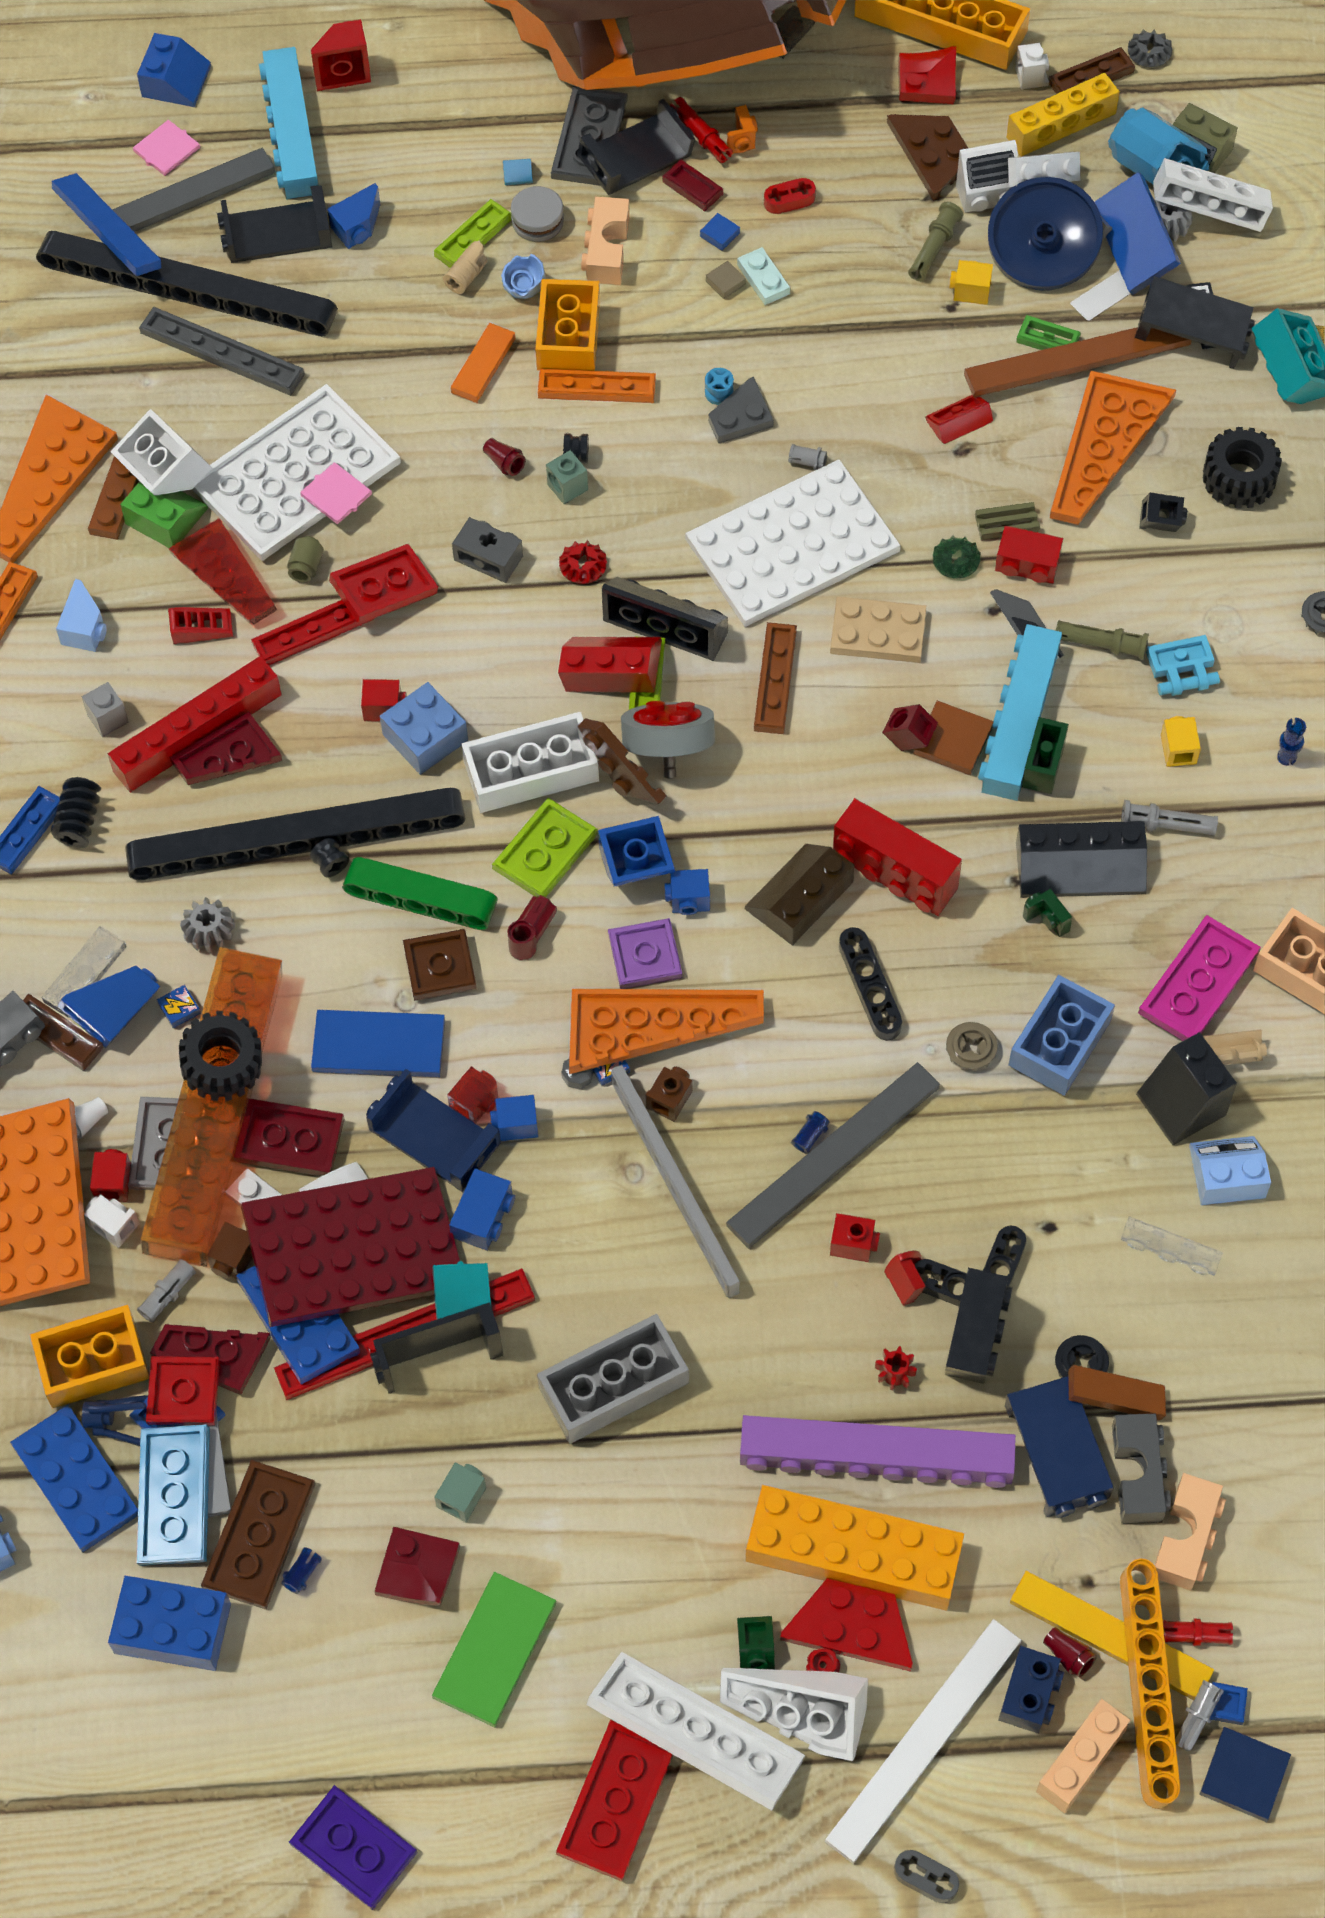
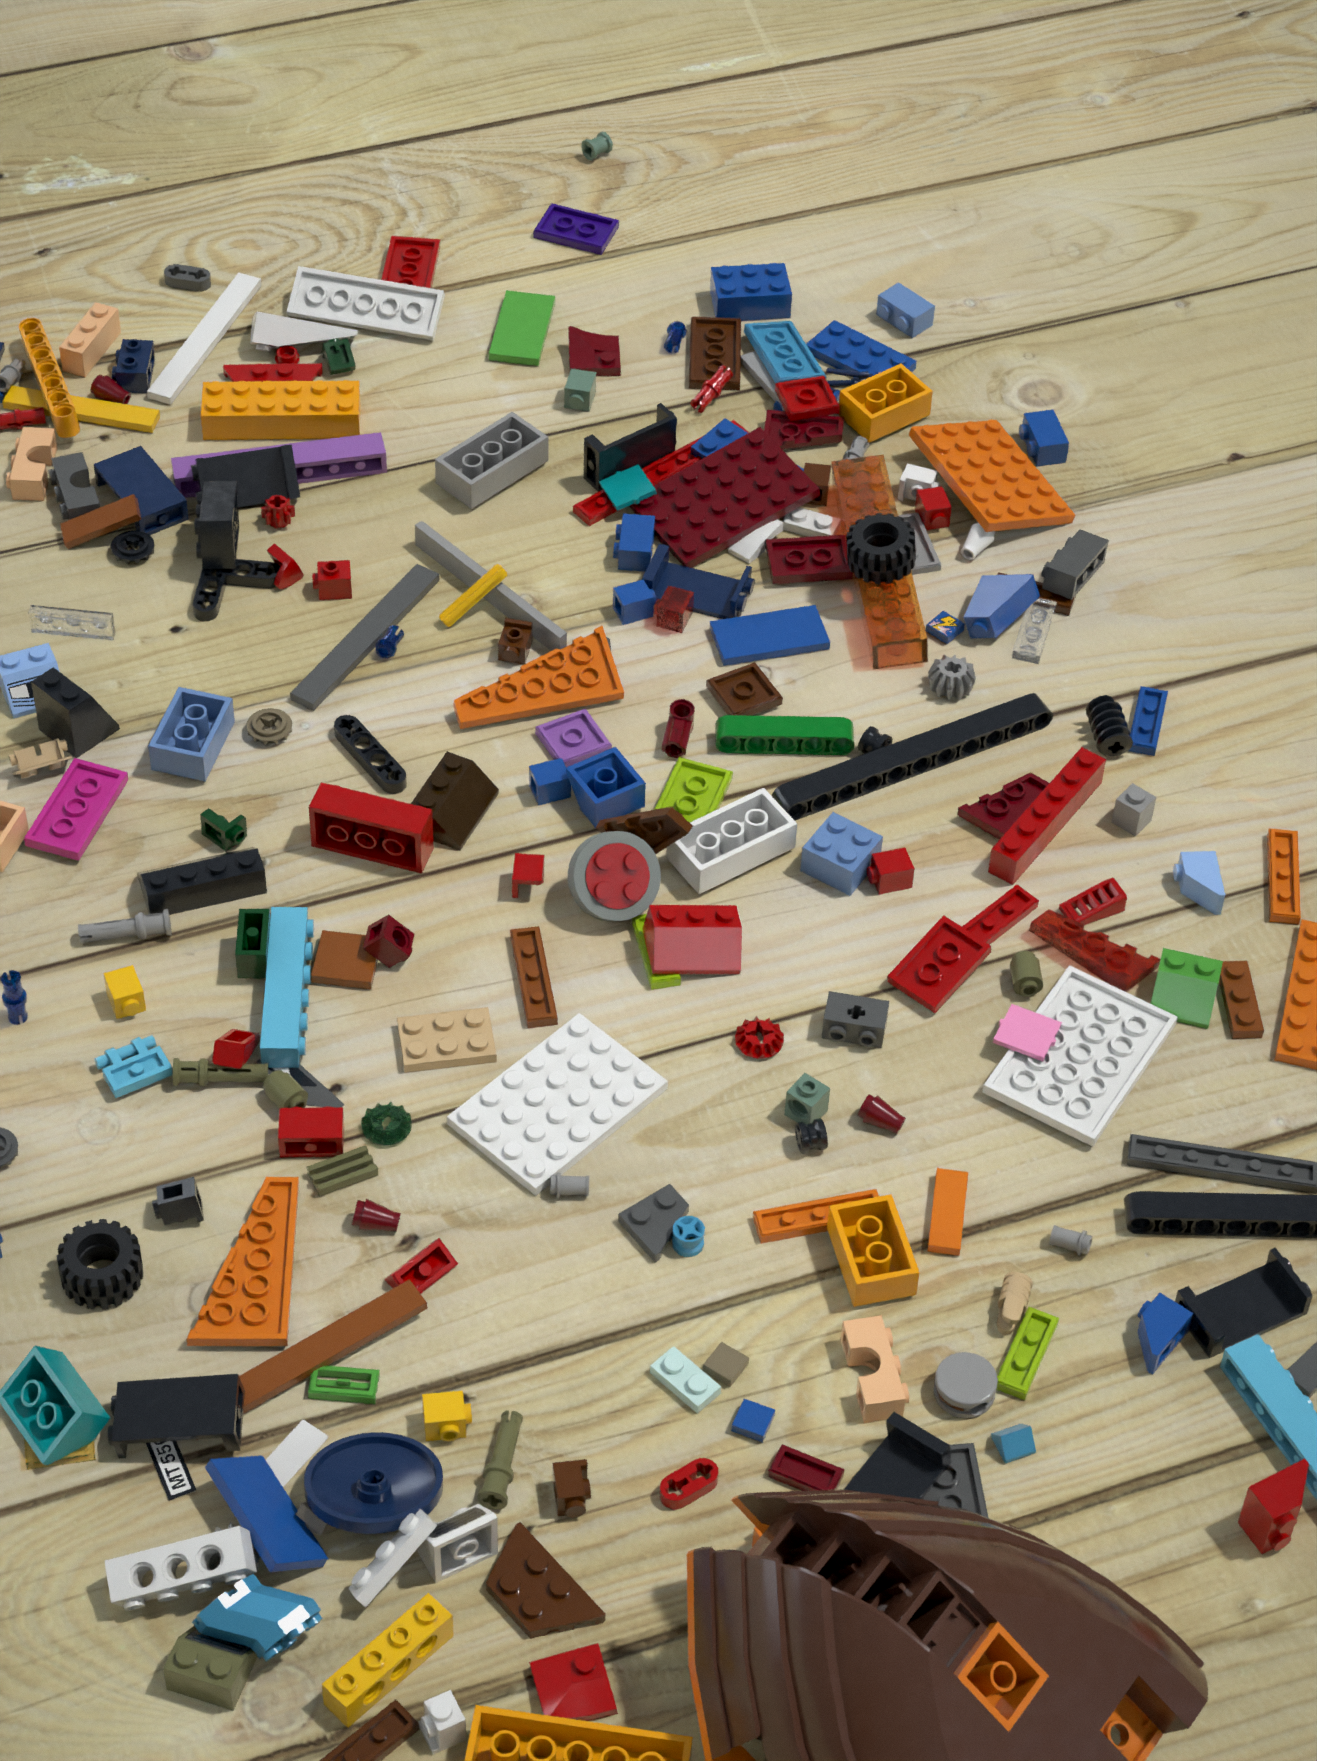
camera: 160 degrees right, 15 degrees down
(160, 457) = (1211, 1016): white slope -> none
(293, 1449) = (711, 388): none -> red pin
(384, 305) = (1071, 1240): none -> light grey pin
(523, 276) = (945, 1301): light blue hair -> none
(664, 616) = (657, 985): black slope -> none
(700, 1157) = (473, 595): none -> yellow axle
(748, 779) = (527, 870): none -> red panel
(885, 206) = (571, 1487): none -> reddish brown brick
(927, 1419) = (257, 473): none -> black panel
(990, 465) = (373, 1216): none -> dark red cone
(1044, 599) = (284, 1090): none -> olive brick
(1101, 635) = (235, 1048): none -> red slope

